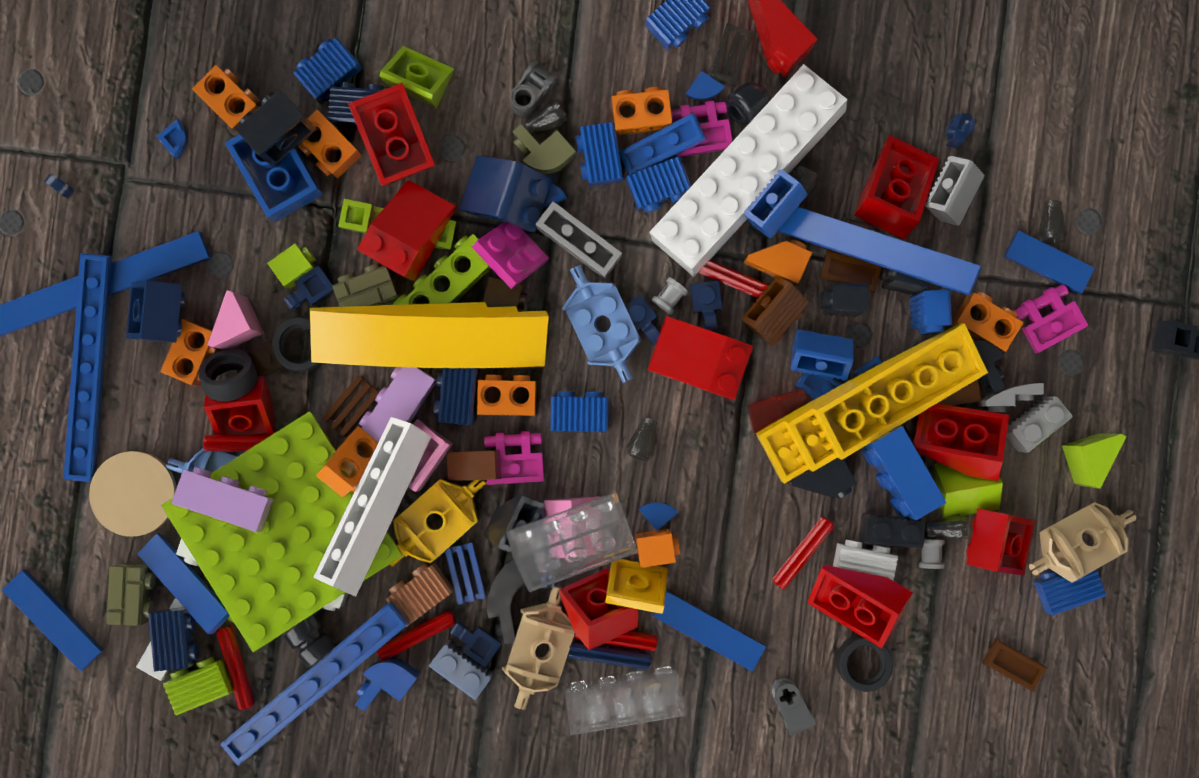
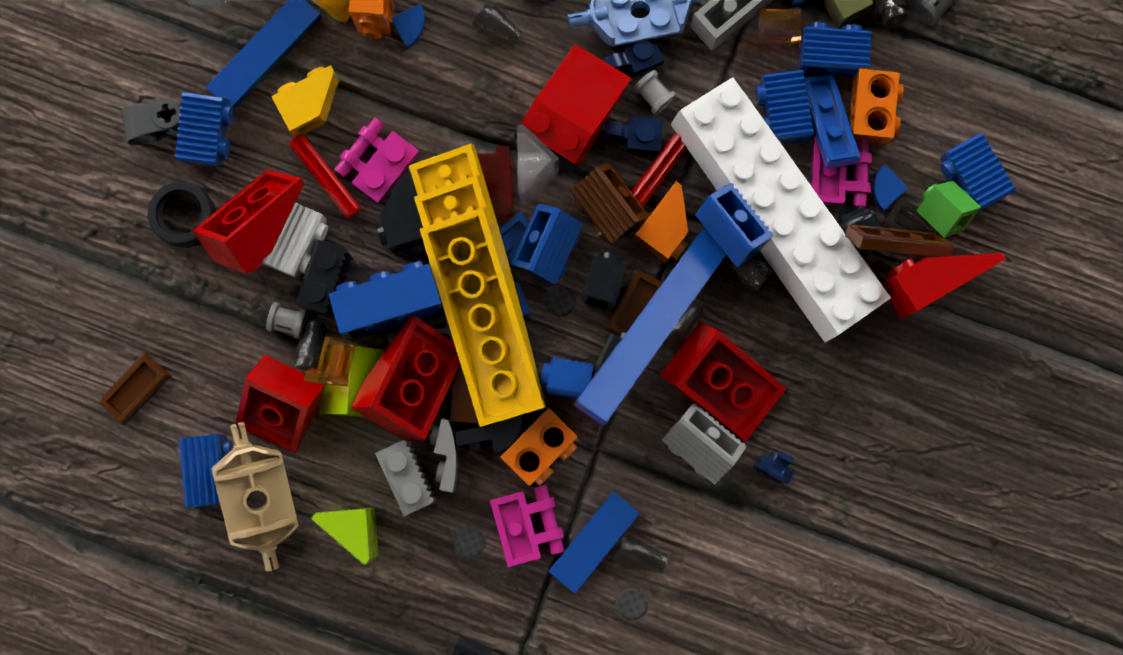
camera: 105 degrees right, 5 degrees down
(590, 203) = (780, 27): none -> clear orange tile
(715, 34) = (948, 208): none -> bright green brick
(748, 583) = (308, 102): none -> yellow slope
(757, 66) = (899, 241): none -> reddish brown tile
(762, 378) = (535, 166): none -> clear slope
(784, 505) = (384, 167): none -> dark pink plate
(791, 663) = (203, 129): none -> blue brick
(964, 504) = (333, 363): none -> clear orange tile

